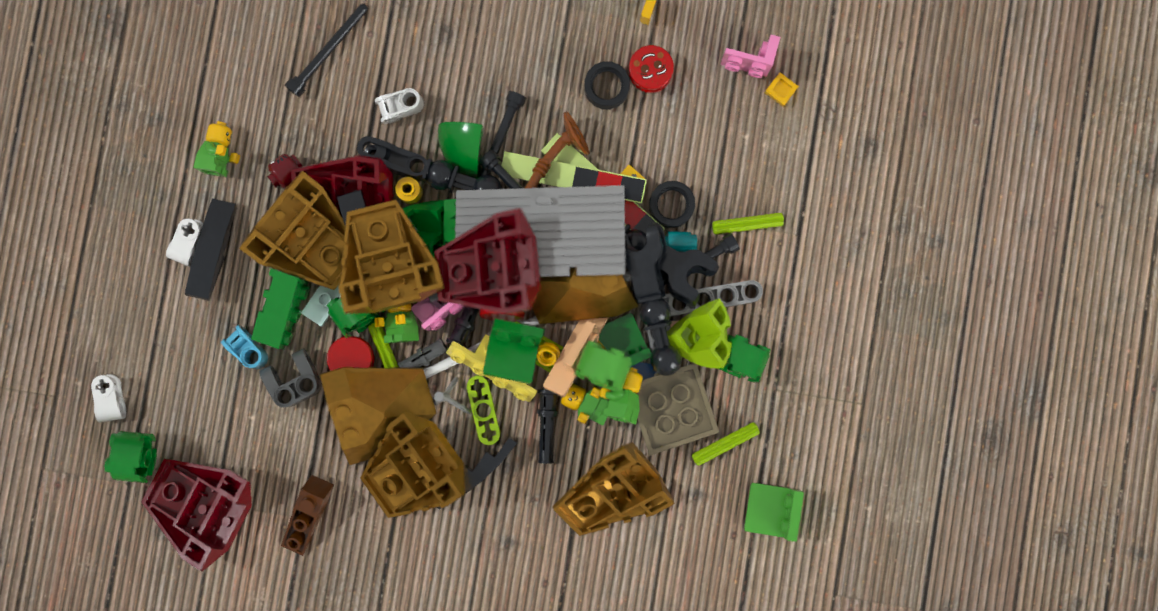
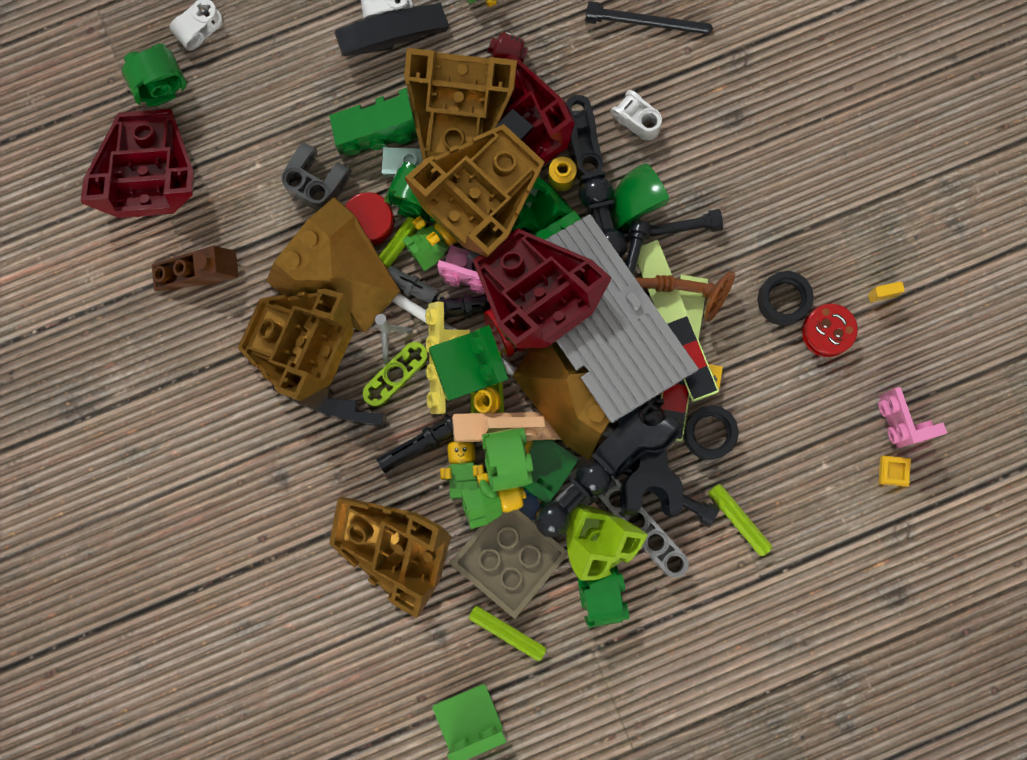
camera: 60 degrees right, 5 degrees down
(242, 346) = (317, 115): medium azure piece -> none
(681, 241) = (680, 463): teal brick -> none

